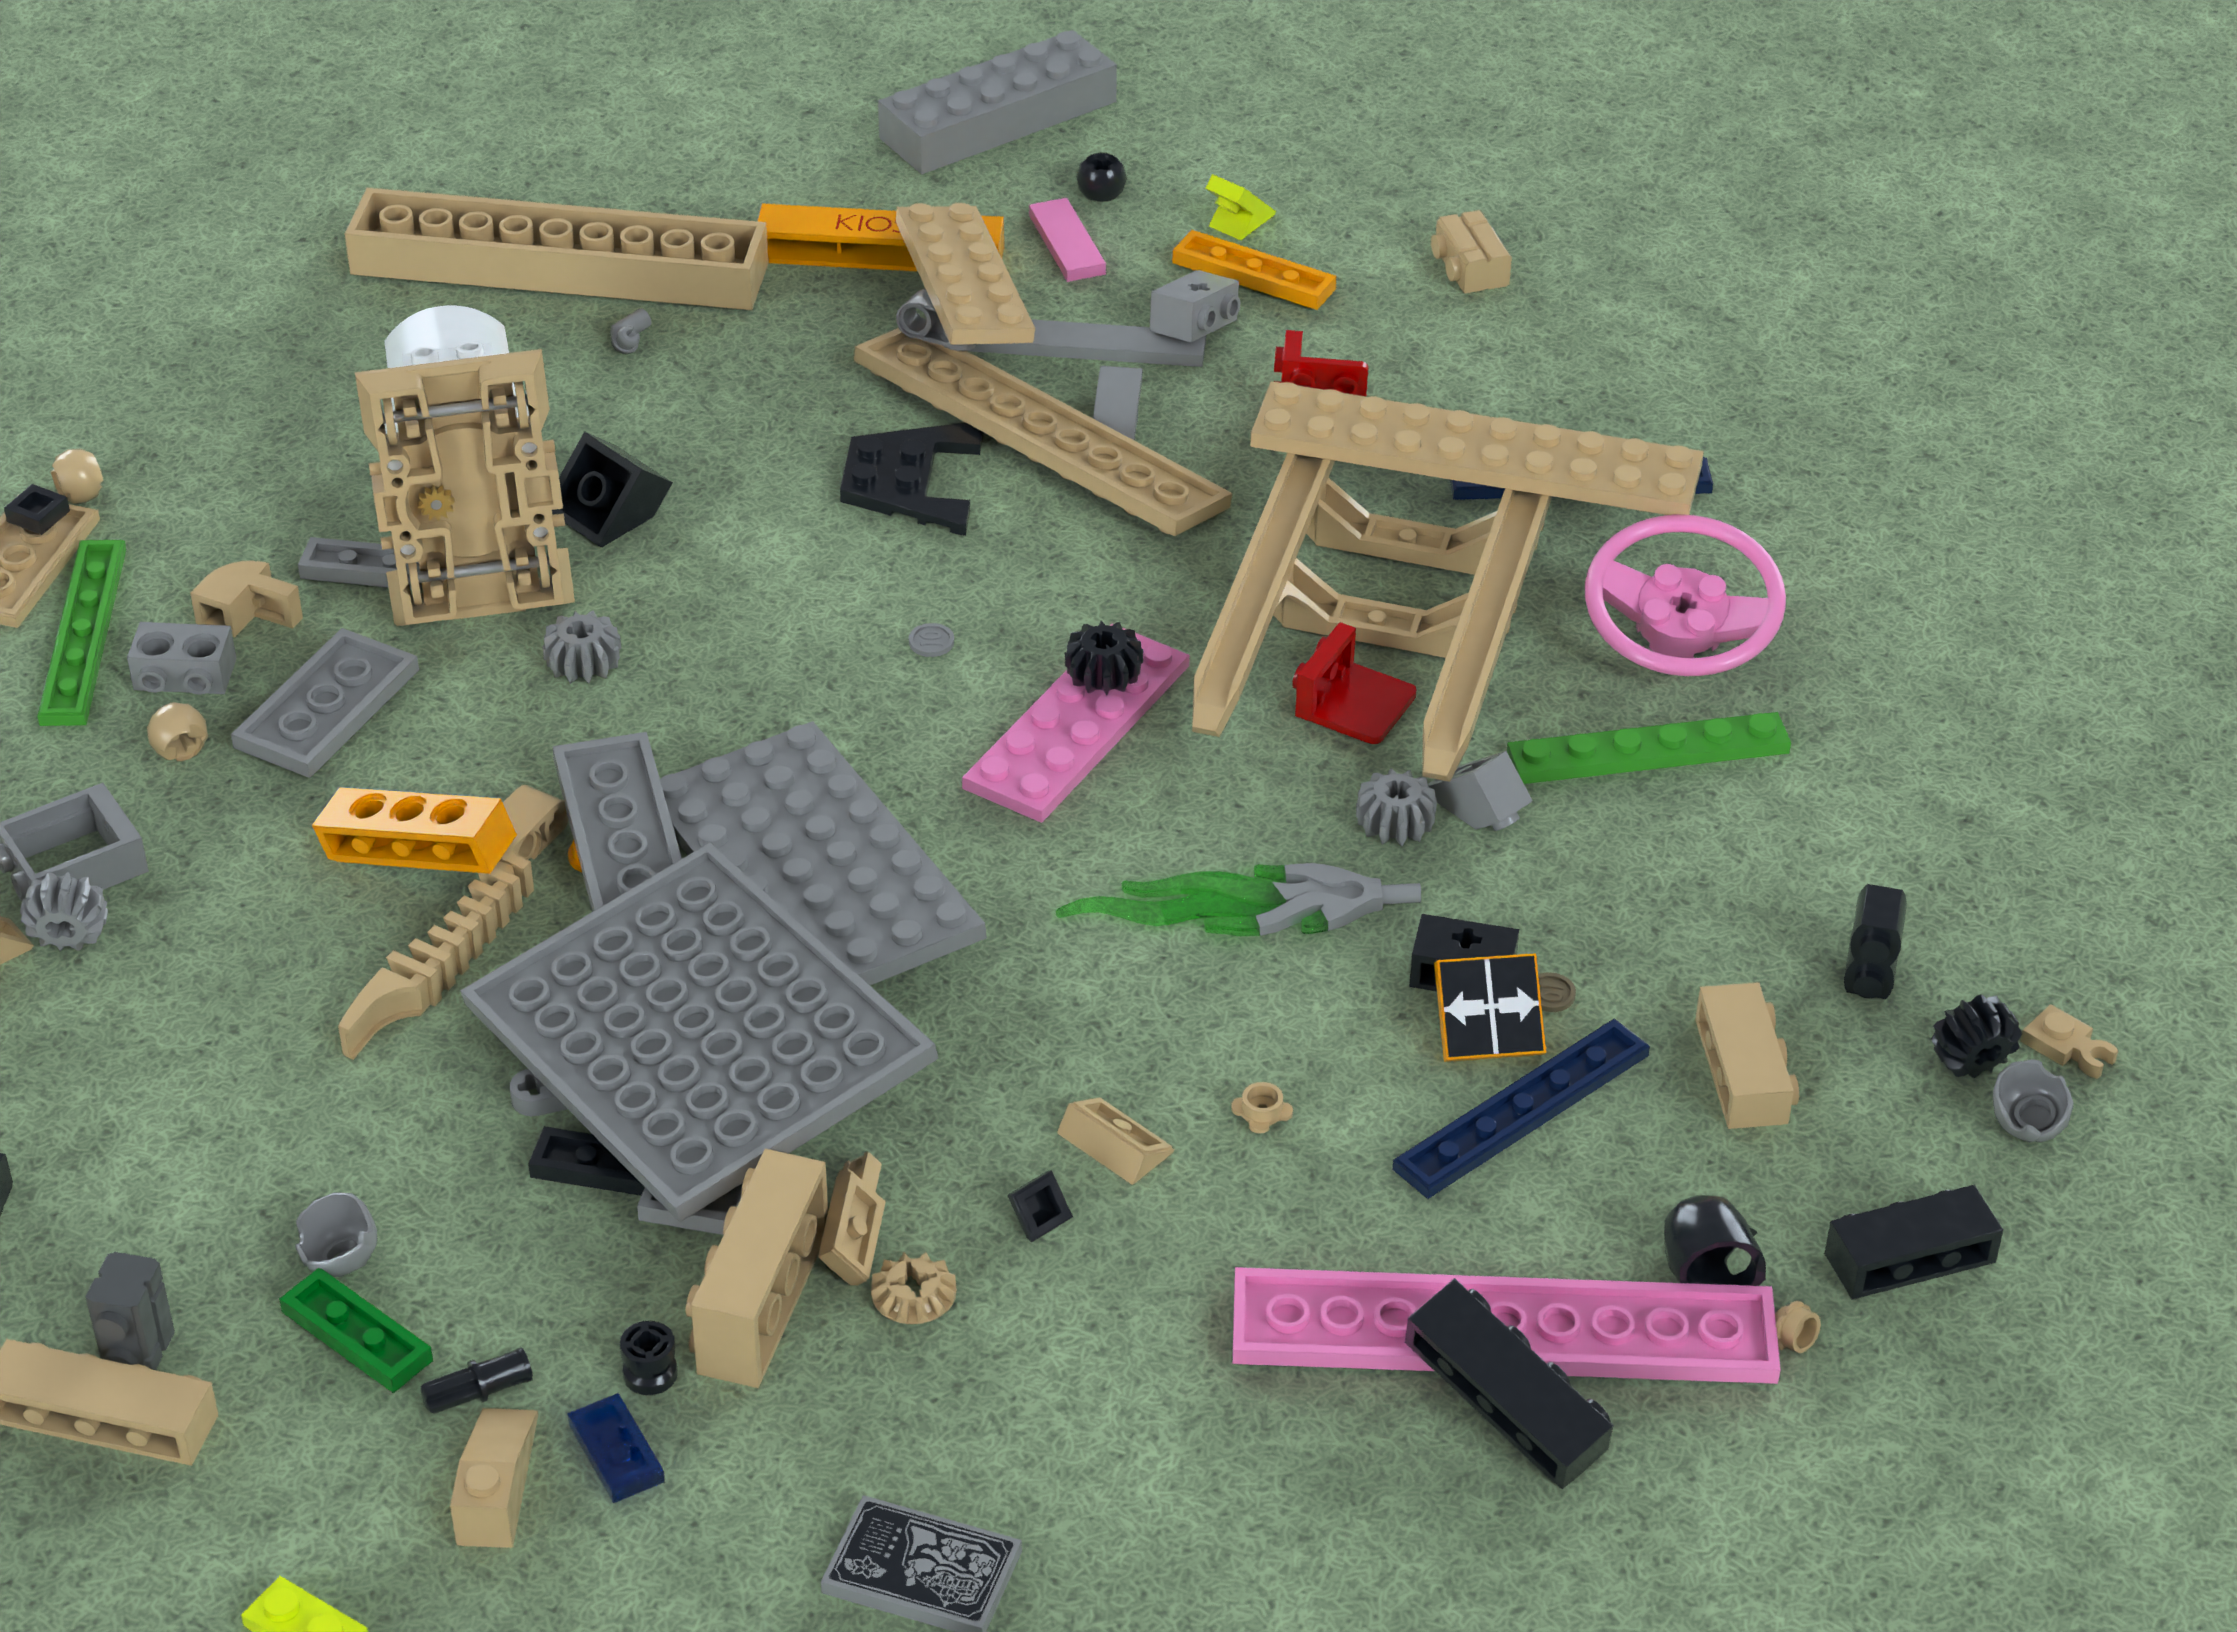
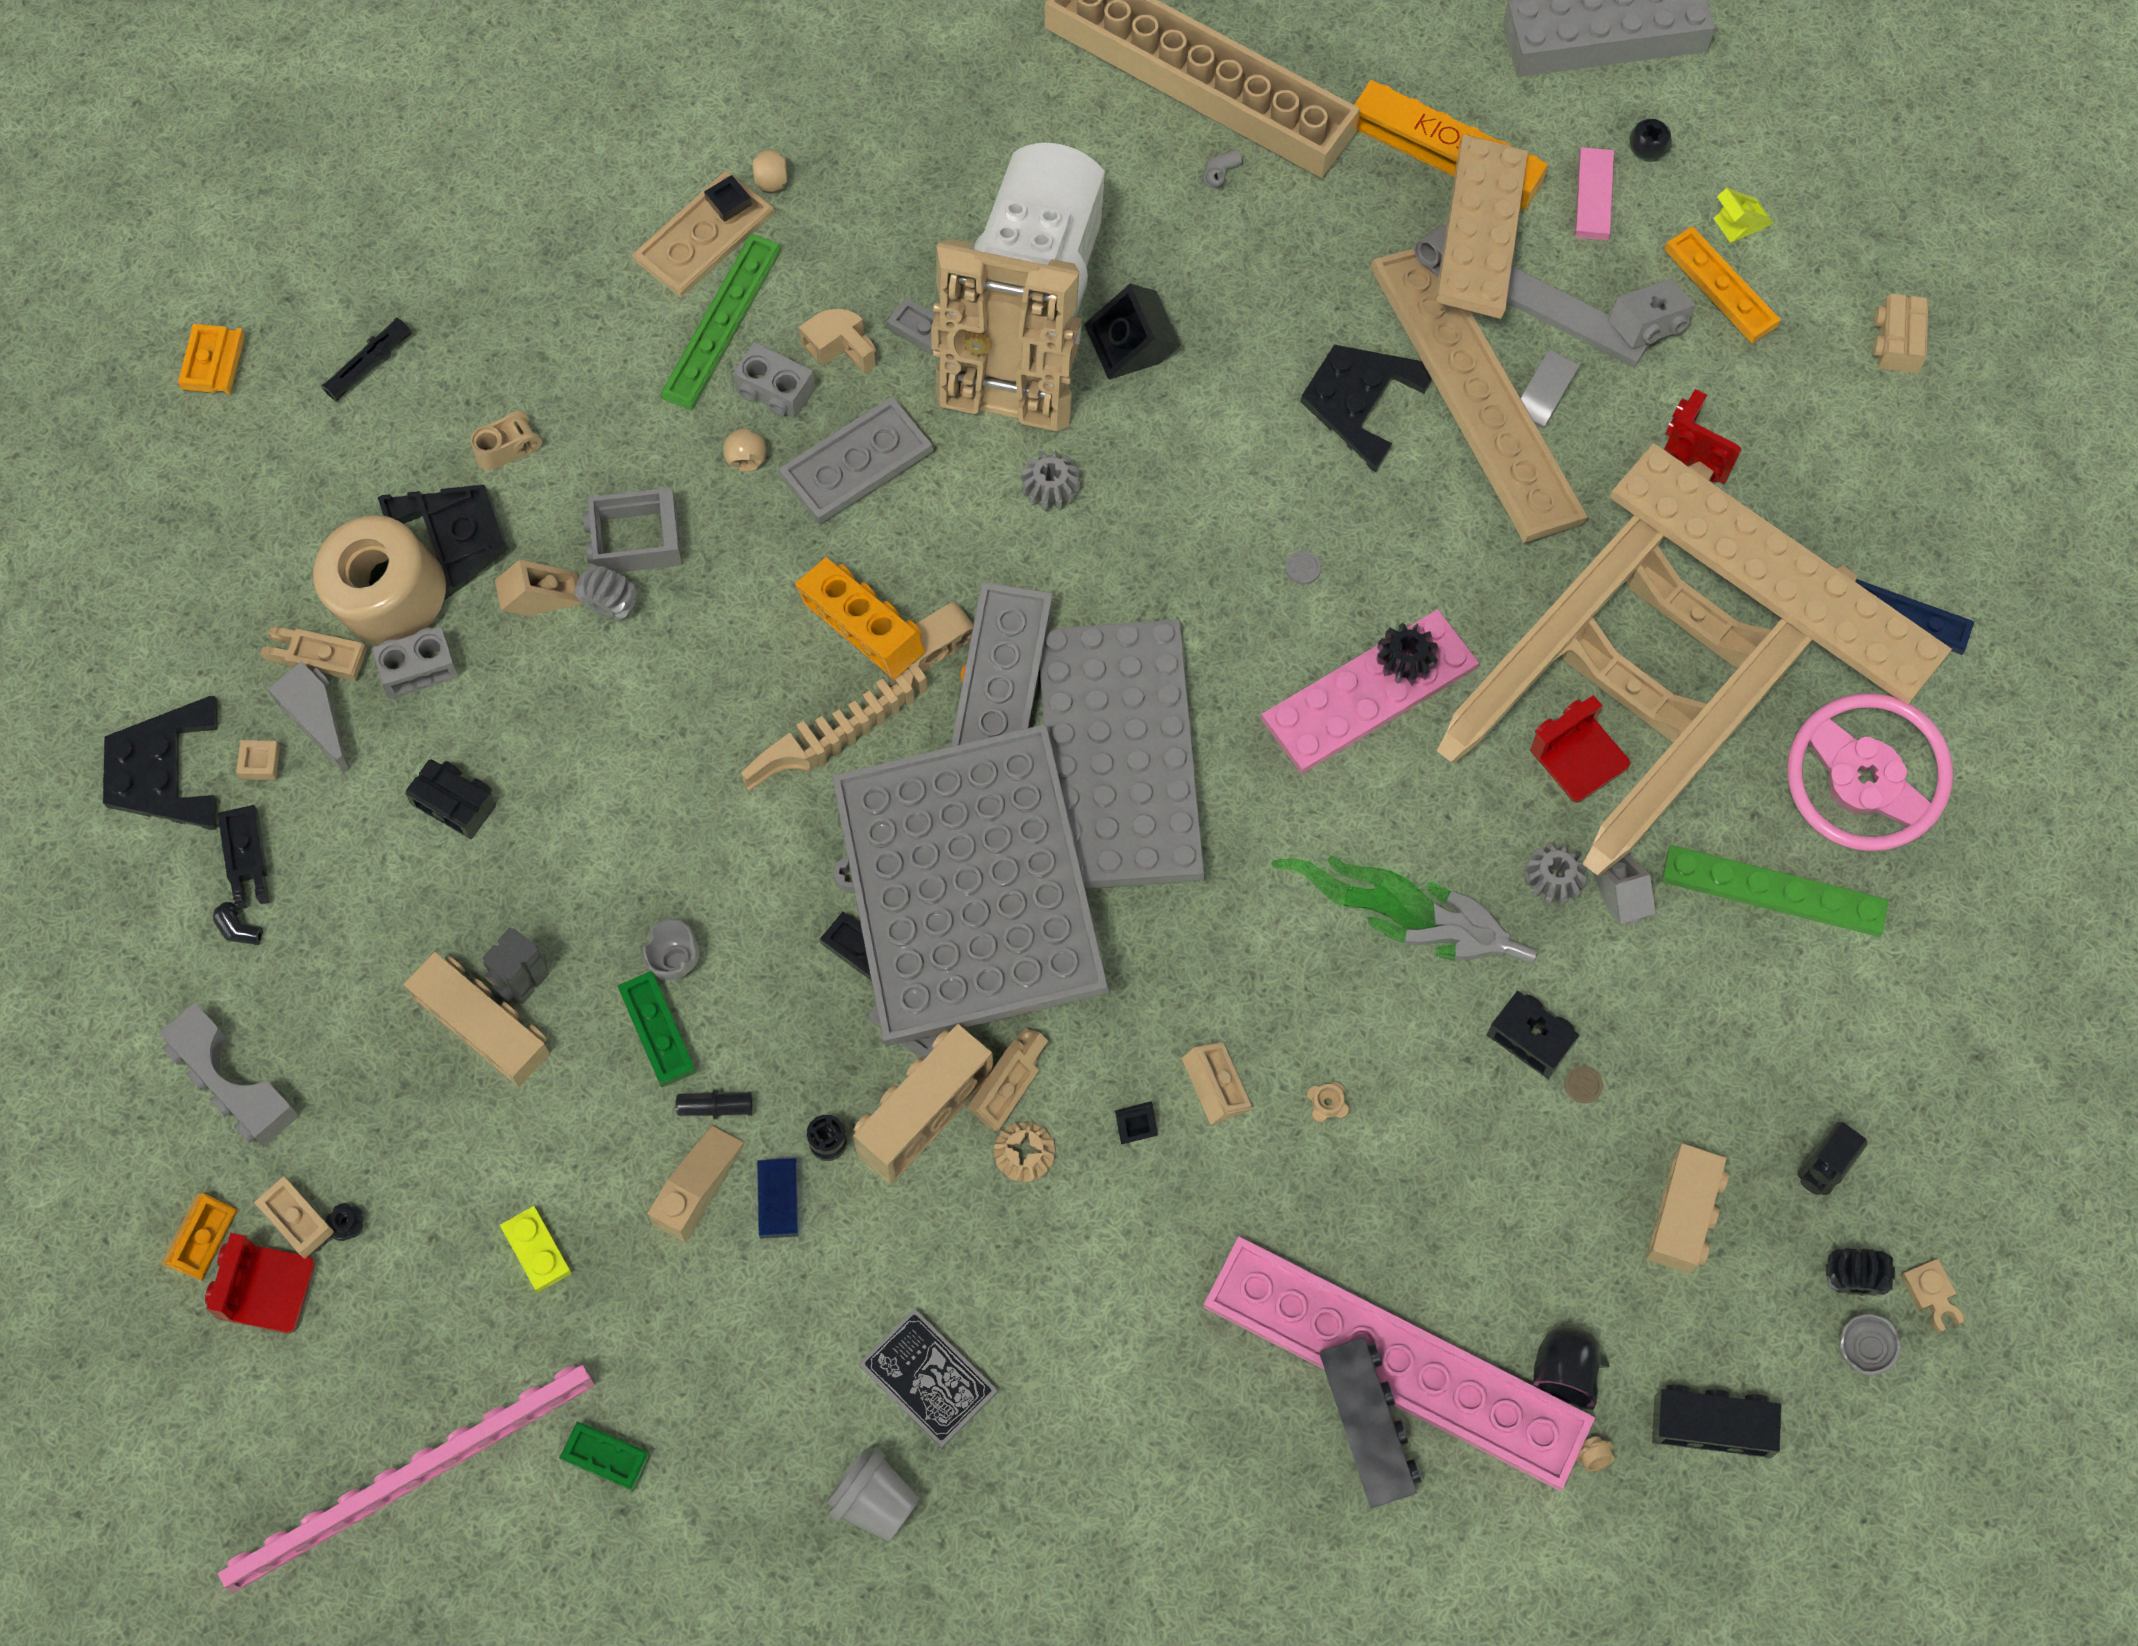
camera: 25 degrees right, 25 degrees up
(1490, 1007) = (1525, 1091): black tile -> none
(1520, 1108) = (1509, 1179): dark blue tile -> none

